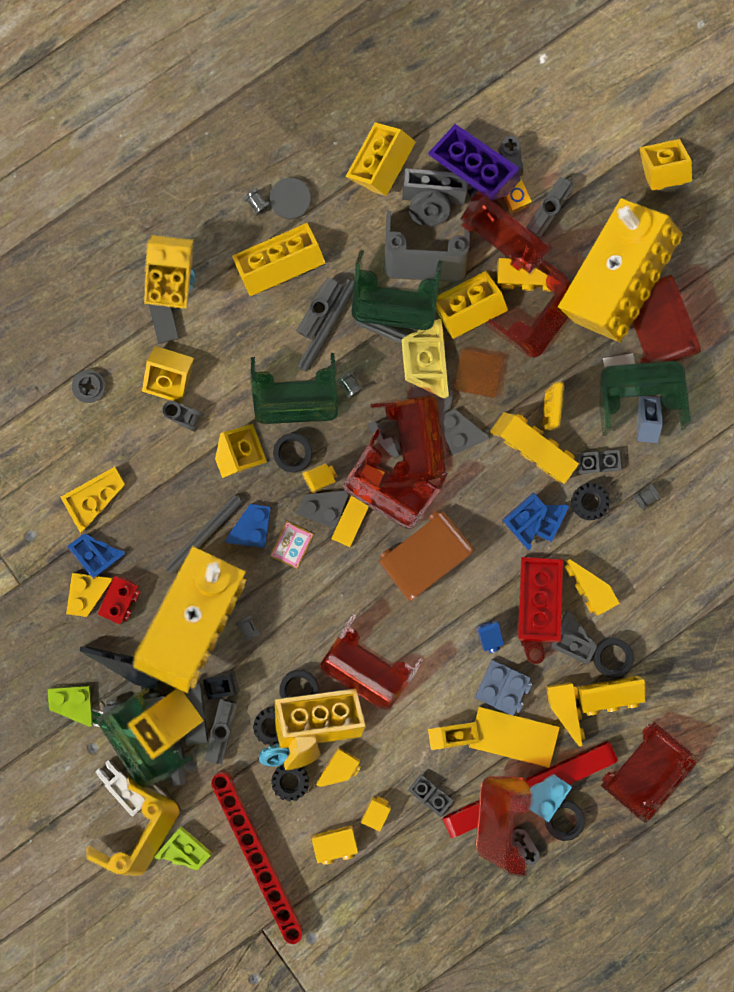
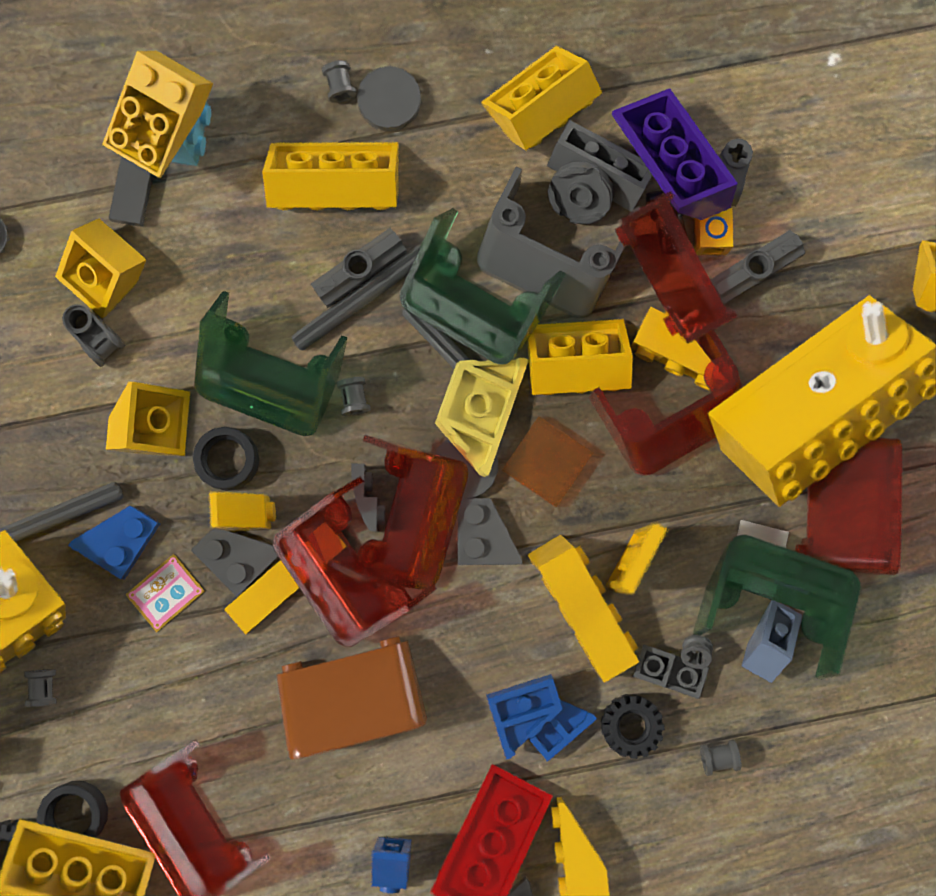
camera: 30 degrees right, 5 degrees down
(608, 449) = (700, 644): none -> dark grey bush

